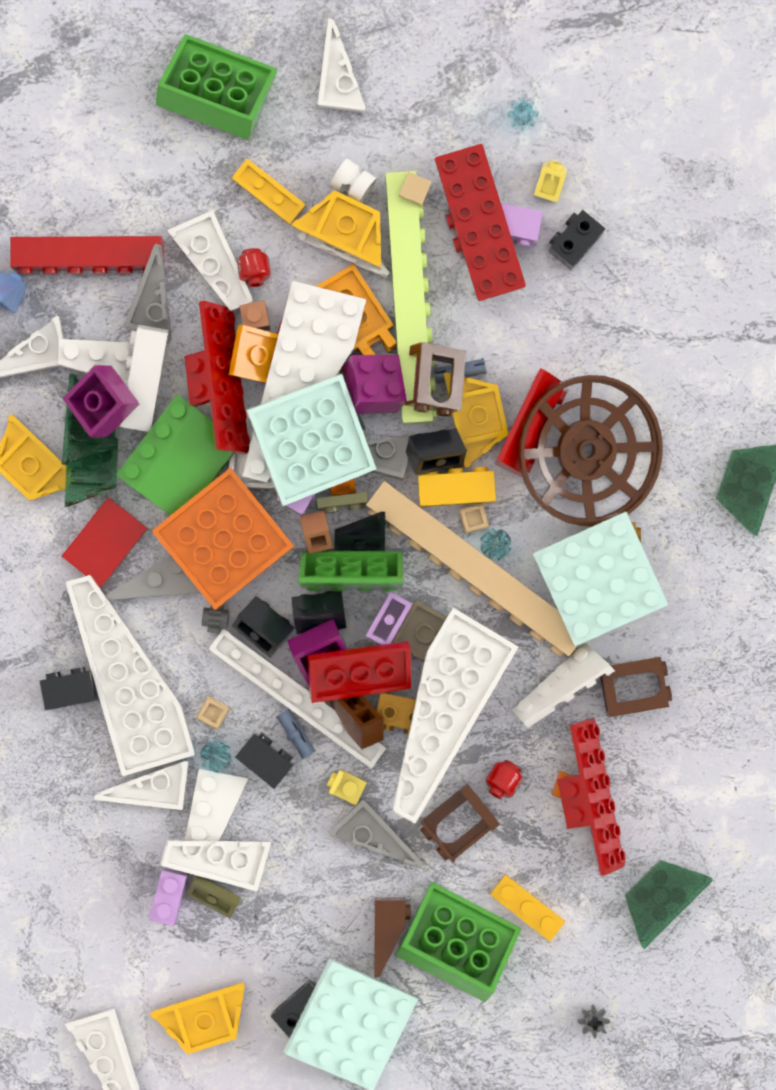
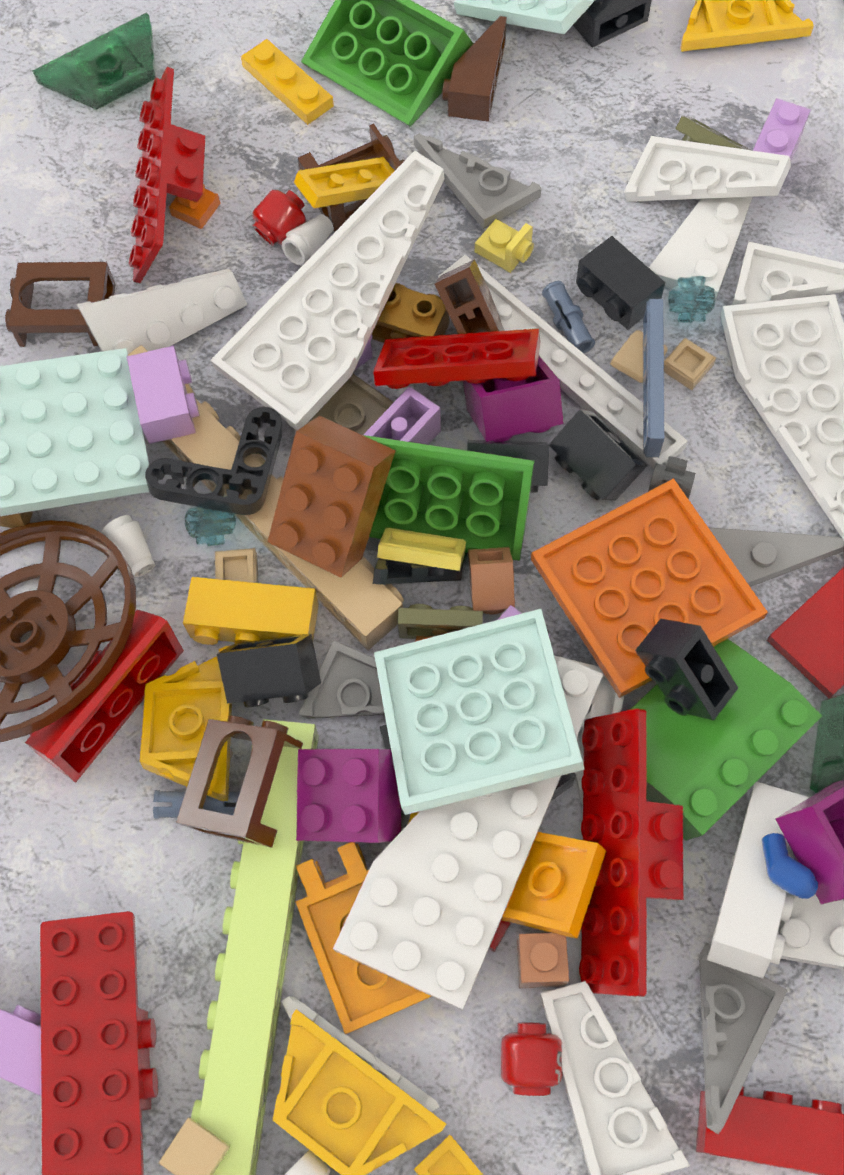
camera: 165 degrees left, 20 degrees down
(132, 376) = (786, 871): none -> blue arm
(195, 478) = (686, 669): none -> black brick
(234, 683) = (653, 378): none -> sand blue tile
(245, 707) = (630, 357): none -> tan slope
(360, 541) = (422, 549): none -> light yellow tile
(416, 547) = (330, 495): none -> dark orange brick
(458, 804) = (343, 181): none -> yellow plate
(479, 569) = (238, 478): none -> black beam
(481, 765) = (307, 239): none -> white cone
(541, 614) = (161, 394): none -> lavender brick
(542, 521) = (131, 542): none -> white cone

